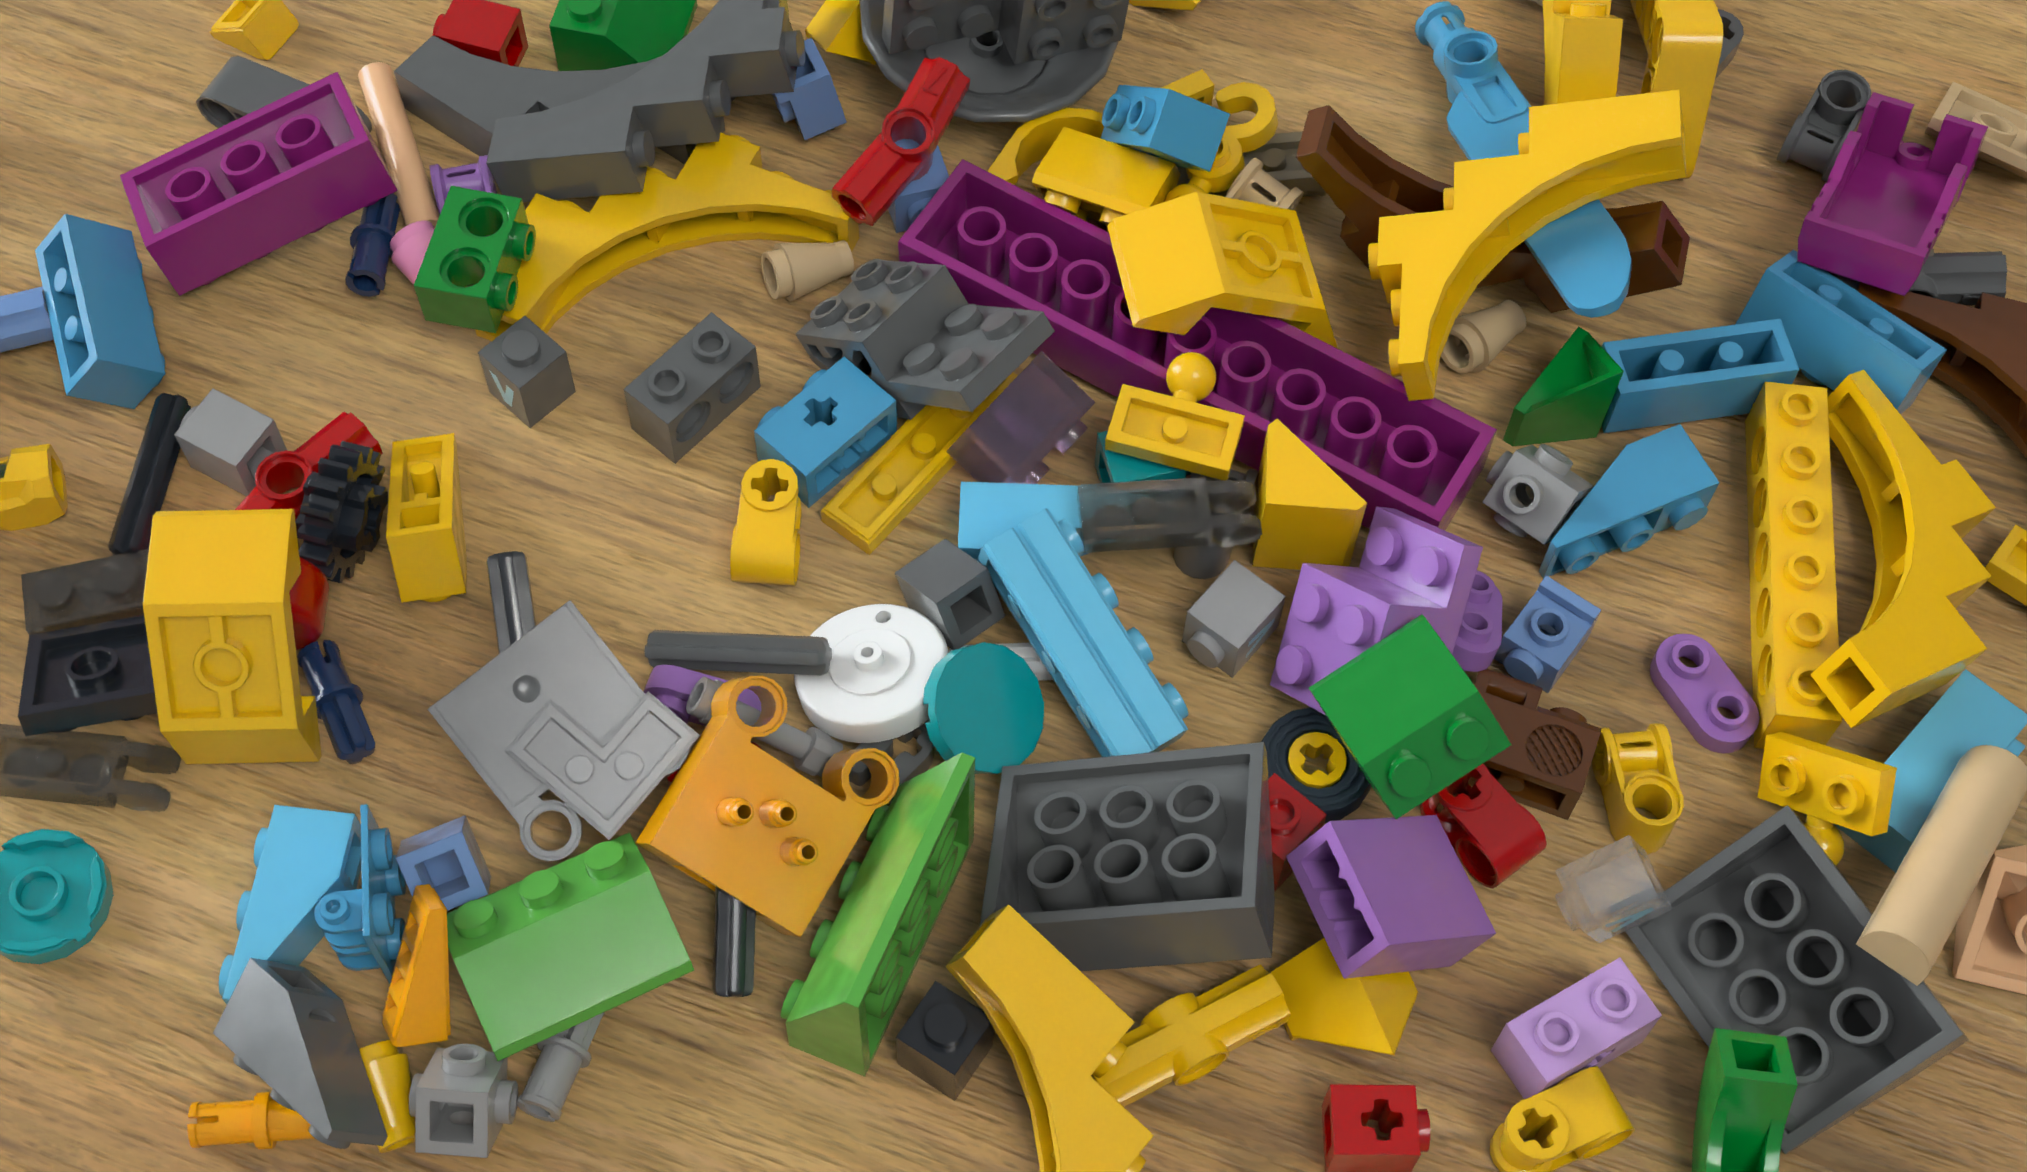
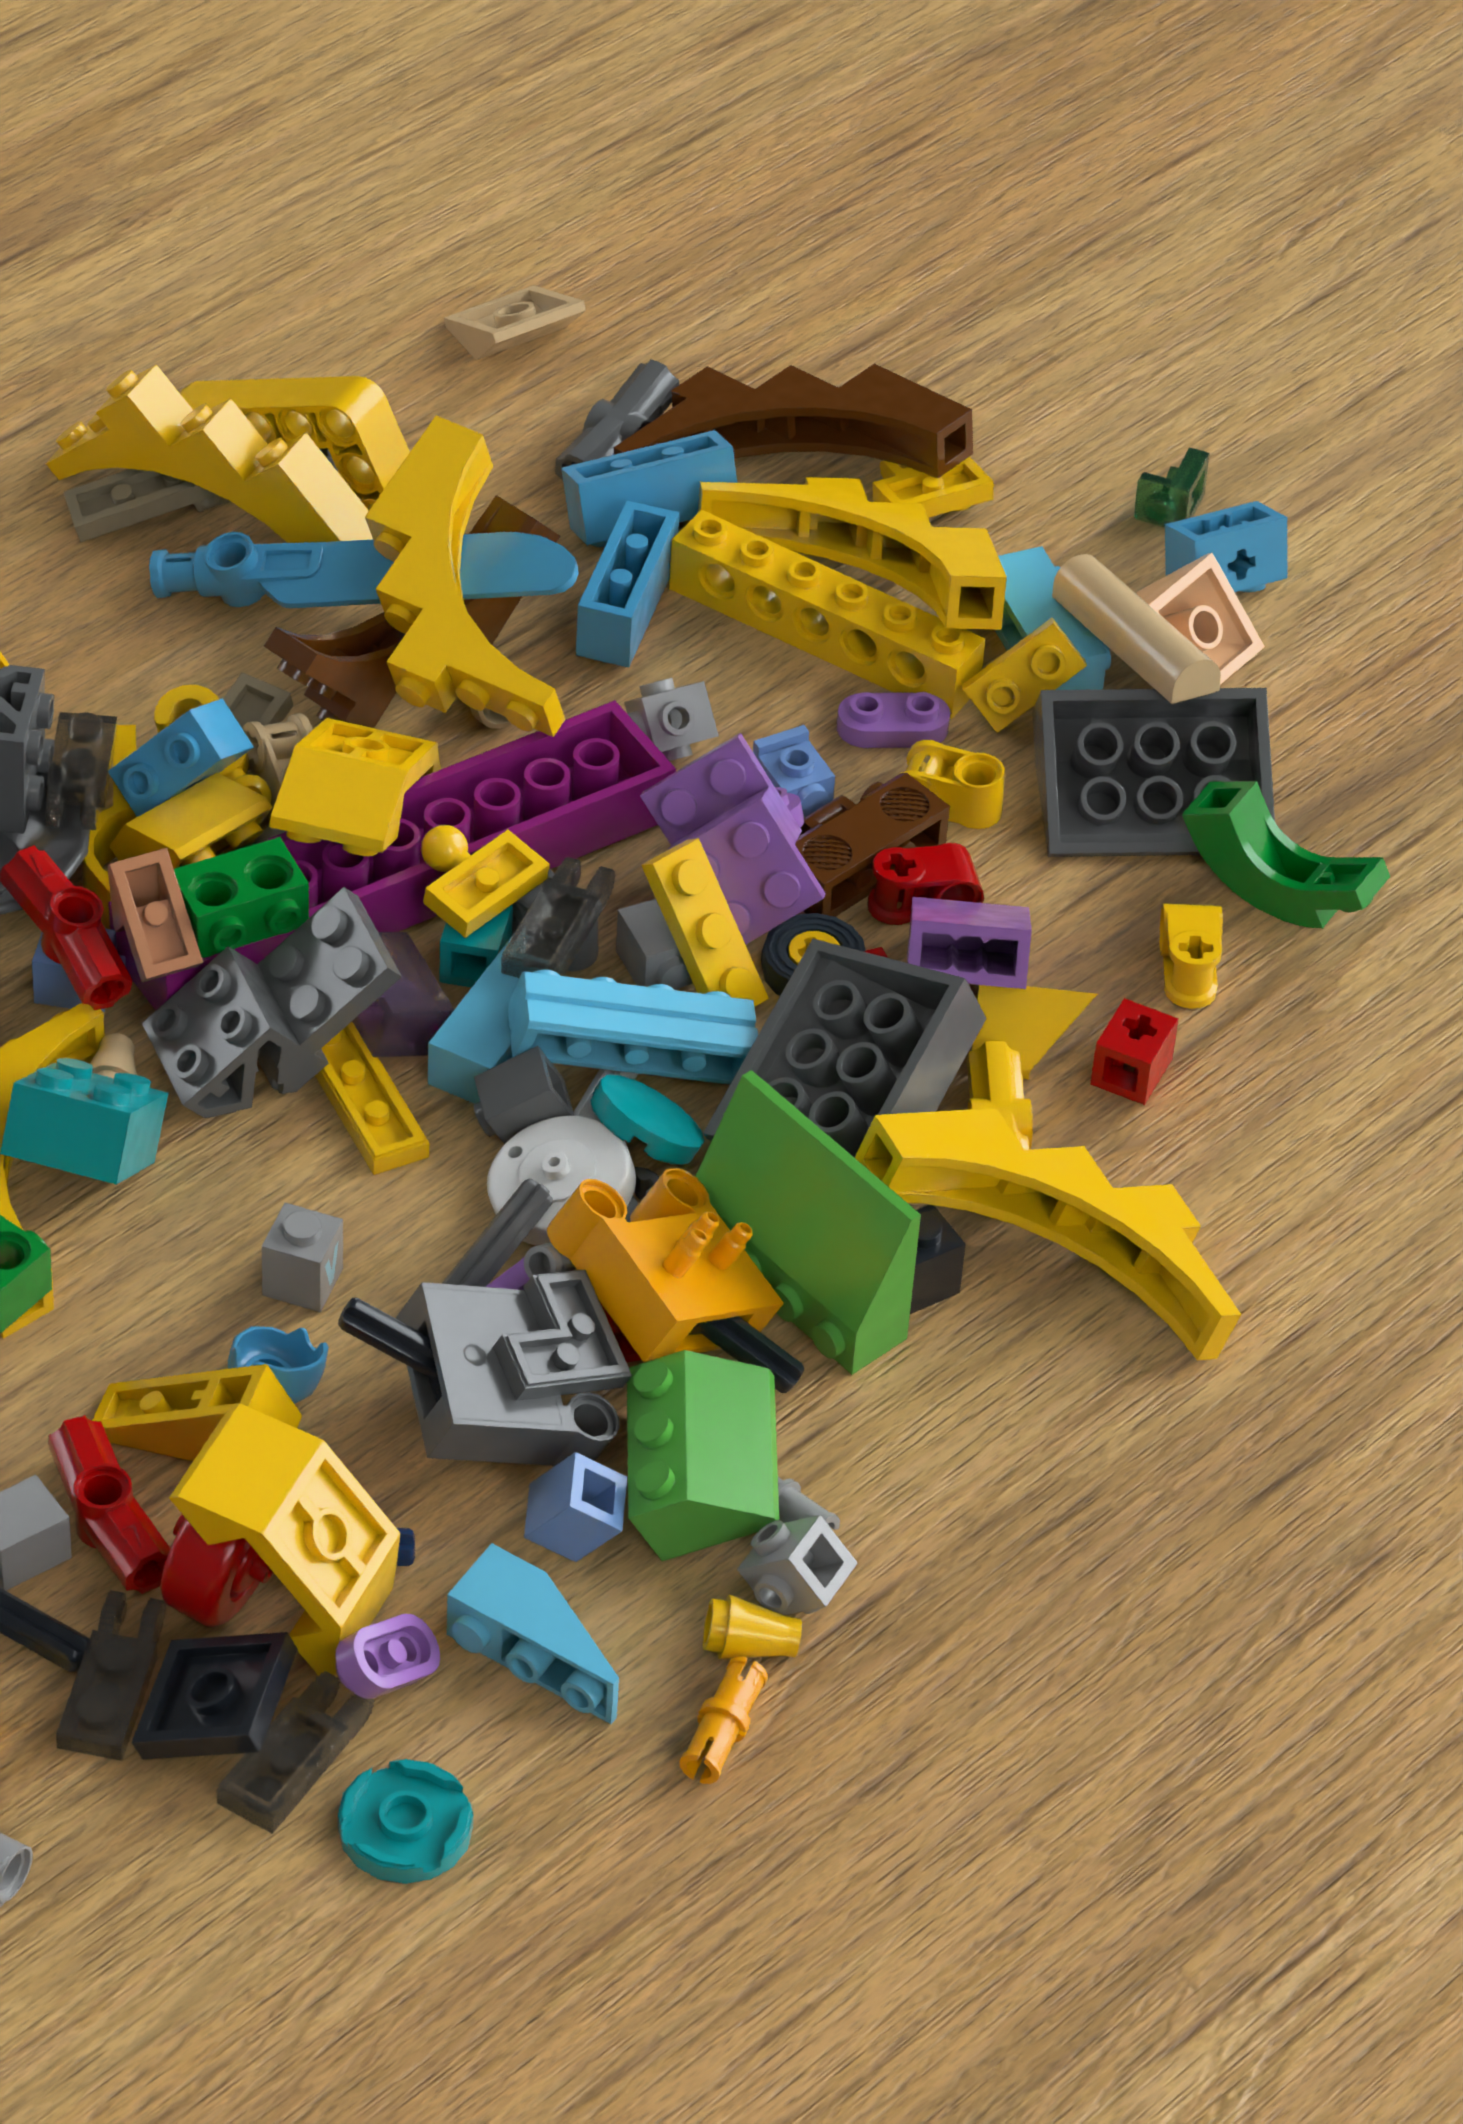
camera: 65 degrees left, 15 degrees down
(191, 793) = (387, 1656): none -> medium lavender plate
(304, 1048) = (681, 1643): dark grey slope -> none
(342, 510) = (161, 1440): black gear -> none
(363, 921) = (585, 1555): dark azure hinge -> none
(419, 988) = (668, 1575): light orange slope -> none
(523, 527) = (288, 1355): none -> dark azure hair
(527, 371) = (95, 1295): dark grey brick -> none
(656, 505) = (302, 1257): none -> light grey brick
(692, 387) = (195, 1190): dark grey brick -> none
(699, 259) = (84, 1121): none -> teal brick
(767, 533) = (378, 1199): yellow piece -> none
(828, 428) = (298, 1123): dark azure brick -> none
(931, 181) = (153, 914): none -> nougat slope
(992, 232) = (244, 896): none -> green brick
(1096, 69) = (80, 766): none -> clear smoke hinge
(1242, 643) = (703, 923): none -> yellow plate
(1302, 507) = (599, 832): yellow slope -> none
(1410, 716) = (847, 849): green slope -> none
(1567, 396) = (587, 652): green slope -> none
(1576, 1029) = (1128, 906): lavender brick -> none
(1611, 890) = (1031, 832): clear brick -> none
(1643, 492) = (708, 649): dark azure slope -> none
(1827, 121) = (440, 390): dark grey piece -> none
(1888, 197) = (559, 403): magenta piece -> none

